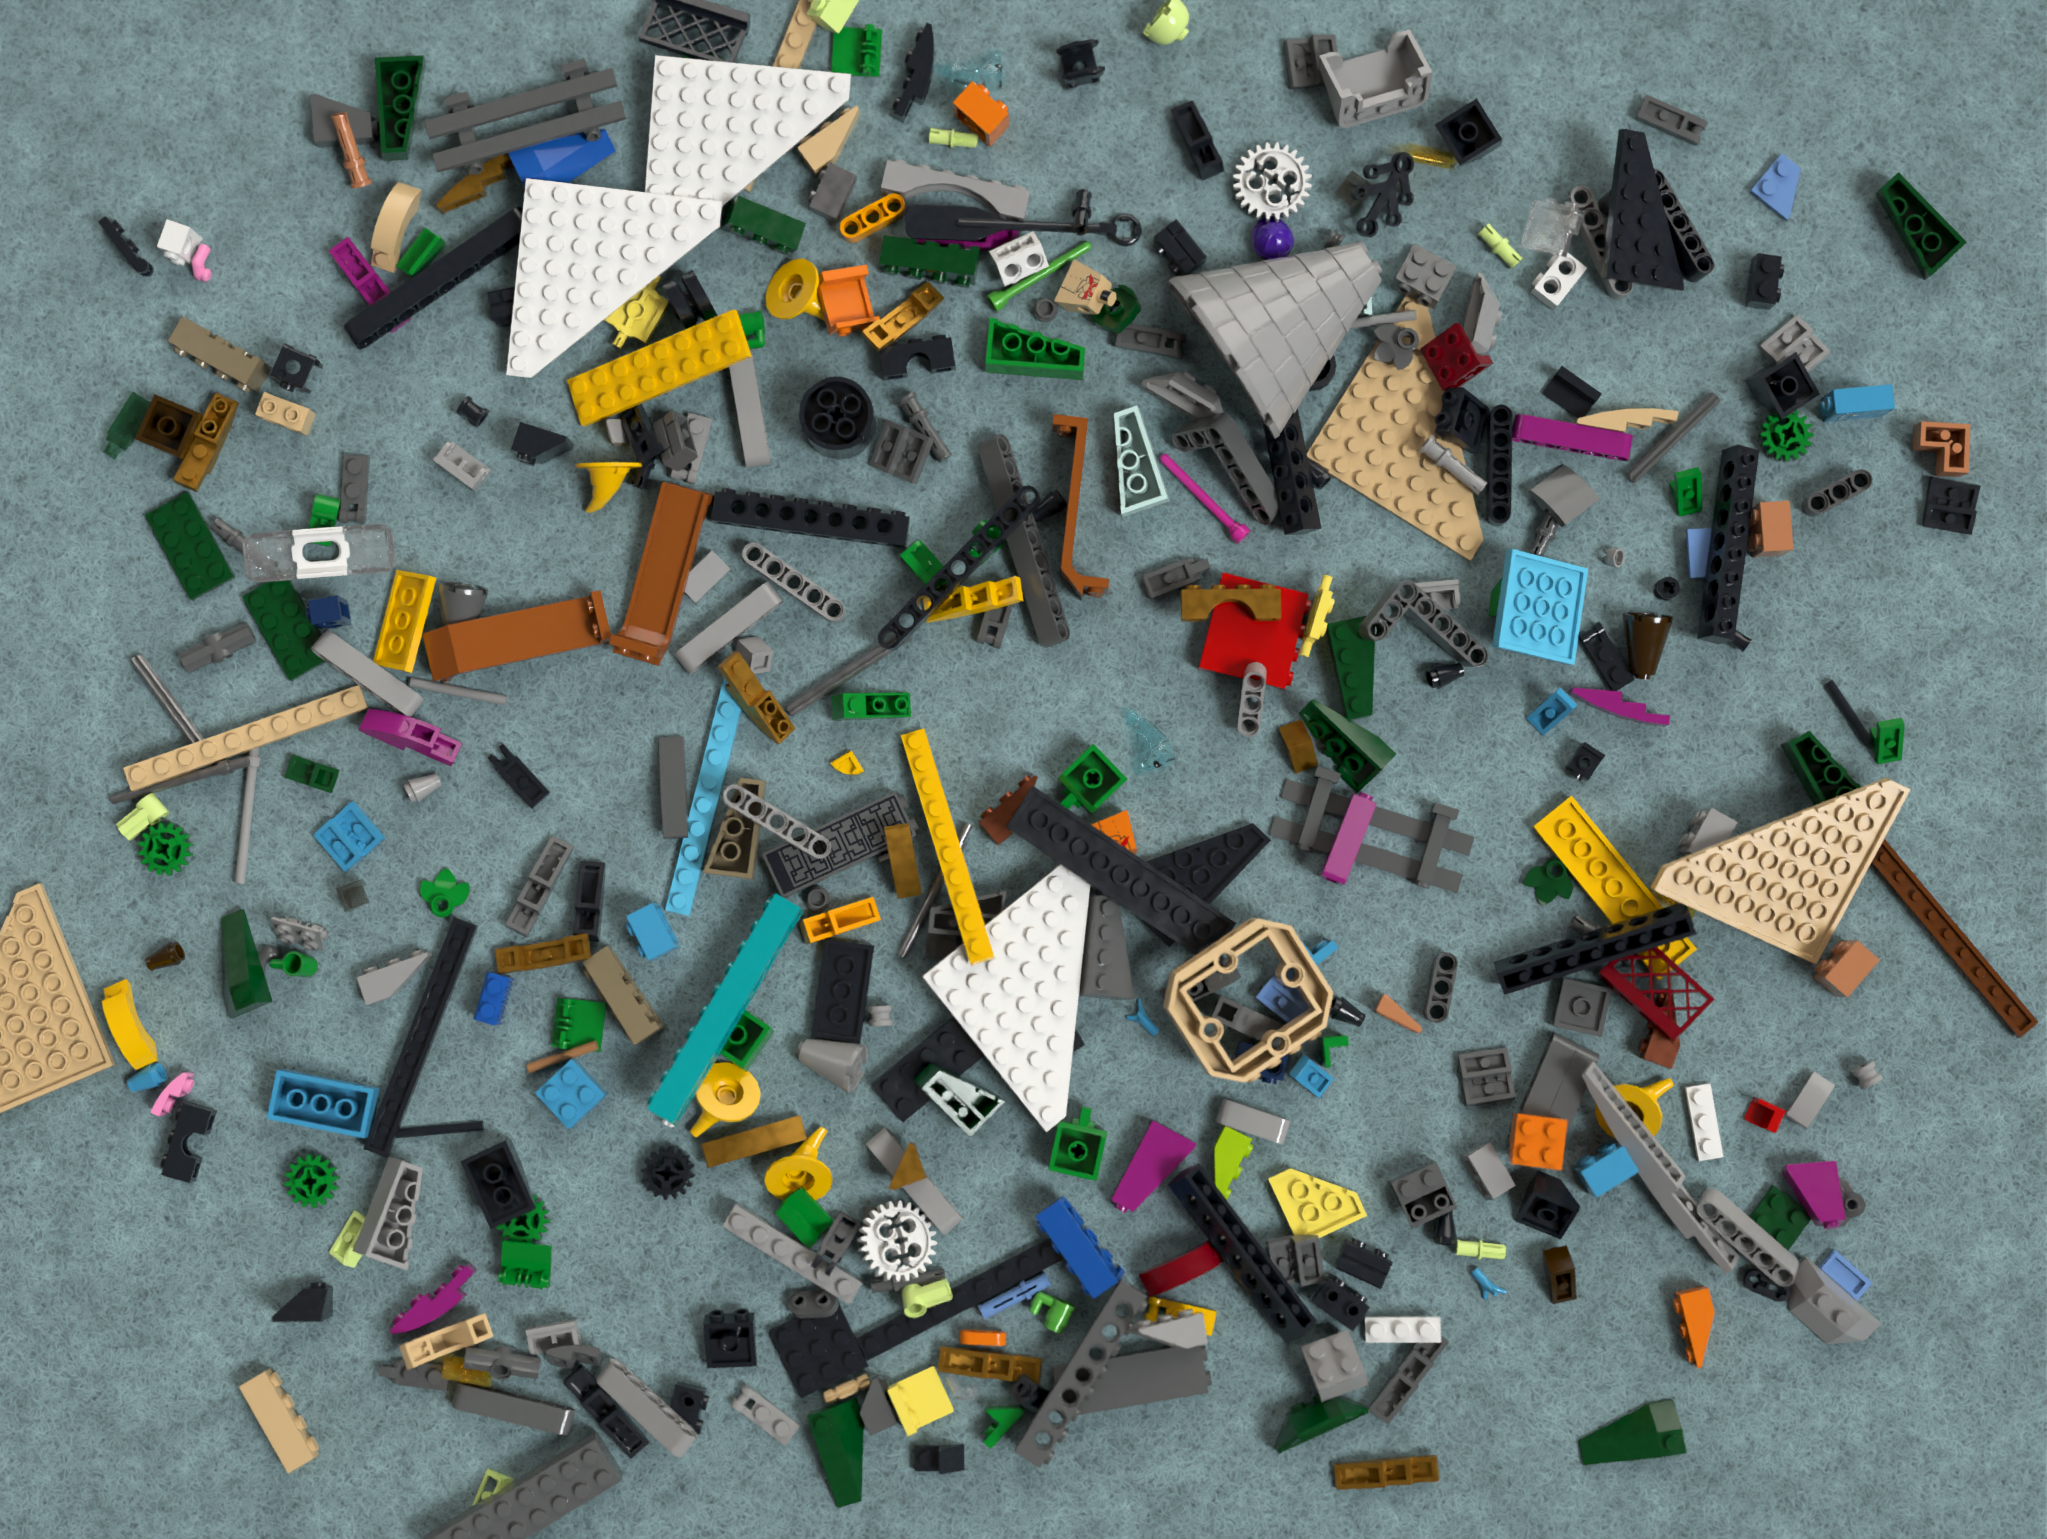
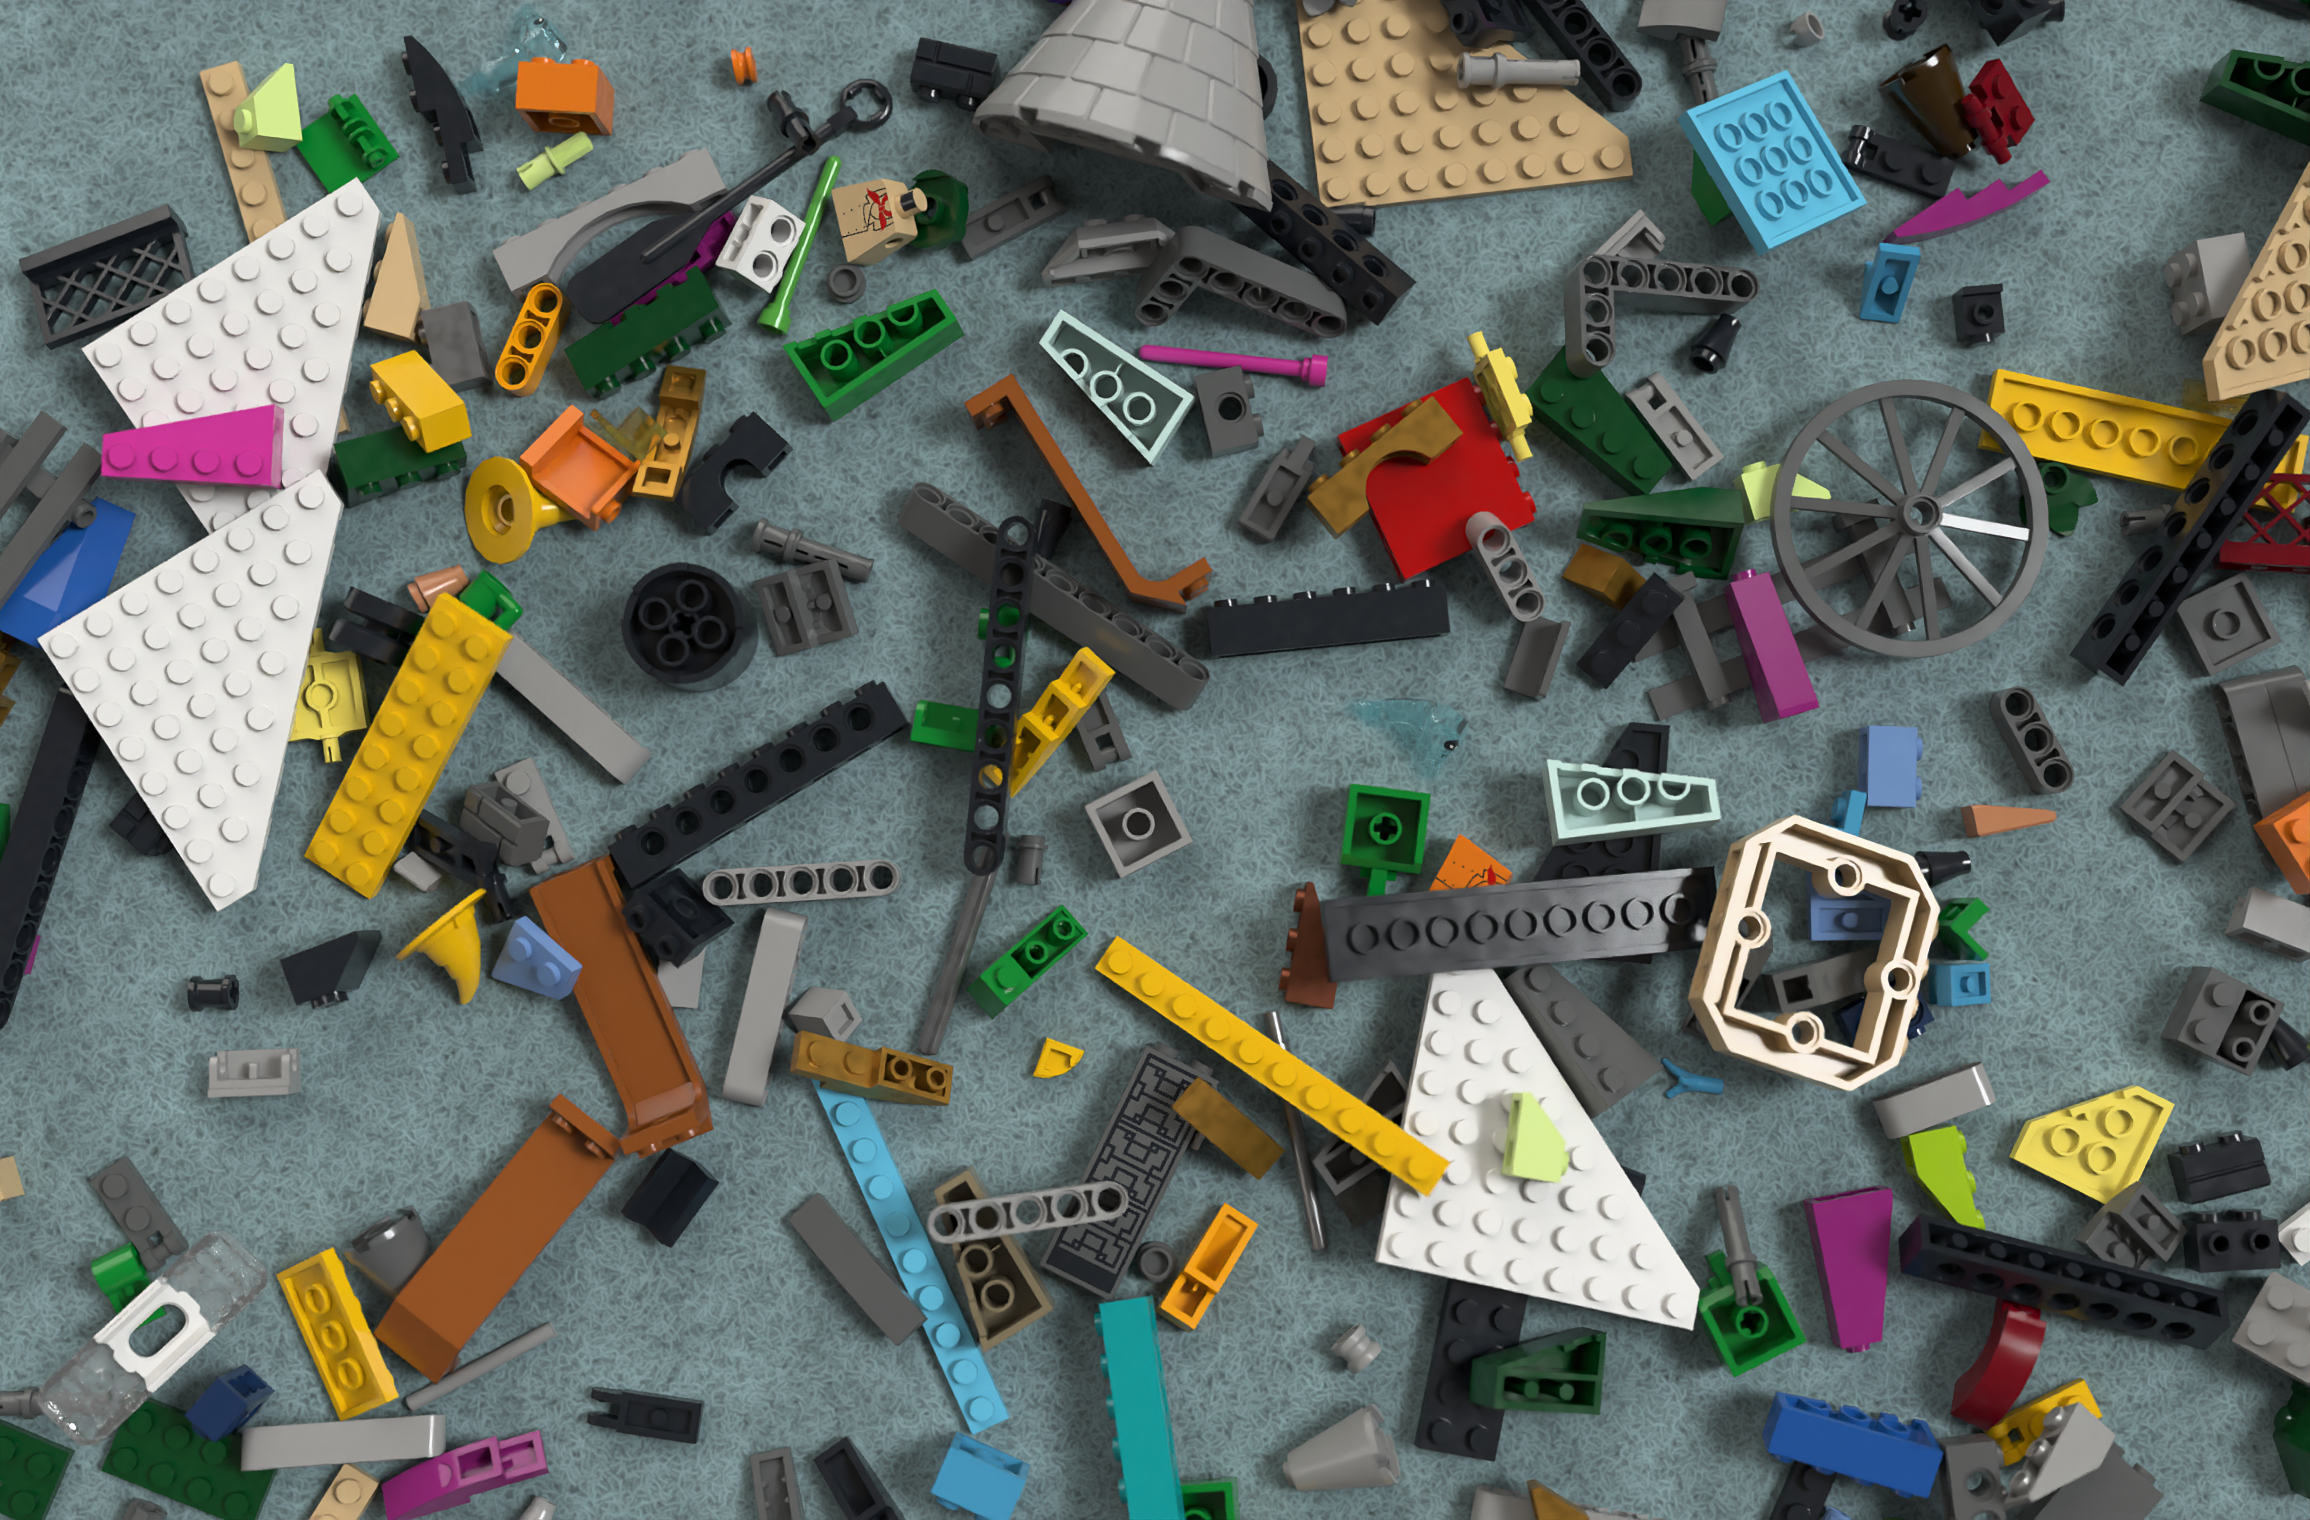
camera: 40 degrees left, 0 degrees up
(612, 681) = (670, 1196): none -> black panel
(637, 519) = (536, 962): none -> medium blue wing
(676, 152) = (210, 450): none -> dark pink wedge
(721, 551) = (676, 917): none -> black plate
(730, 300) = (430, 585): none -> nougat cone
(795, 206) = (420, 401): none -> yellow brick
(842, 991) = (1283, 1355): black plate -> none
(886, 303) = (637, 433): none -> clear yellow panel
(912, 658) = (1030, 859): none -> dark grey pin
(976, 682) = (1138, 824): none -> light grey brick
(1040, 981) = (1533, 1143): none -> yellowish green slope
(1080, 164) = (744, 65): none -> orange bush
(1096, 1118) = (1740, 1260): none -> dark grey pin
(1146, 658) = (1328, 621): none -> black brick
(1180, 504) = (1224, 435): none -> dark grey brick
(1214, 856) = (1610, 803): none -> light aqua wedge
(1233, 755) = (1536, 657): none -> dark grey panel
(1288, 778) = (1630, 630): none -> black plate
(1361, 944) = (1889, 766): none -> medium blue brick
(1391, 699) = (1674, 427): none -> light grey plate
(1414, 769) = (1757, 486): none -> yellowish green slope
(1544, 846) = (1900, 520): none -> dark grey wheel
(1677, 668) = (1997, 110): none -> dark red plate

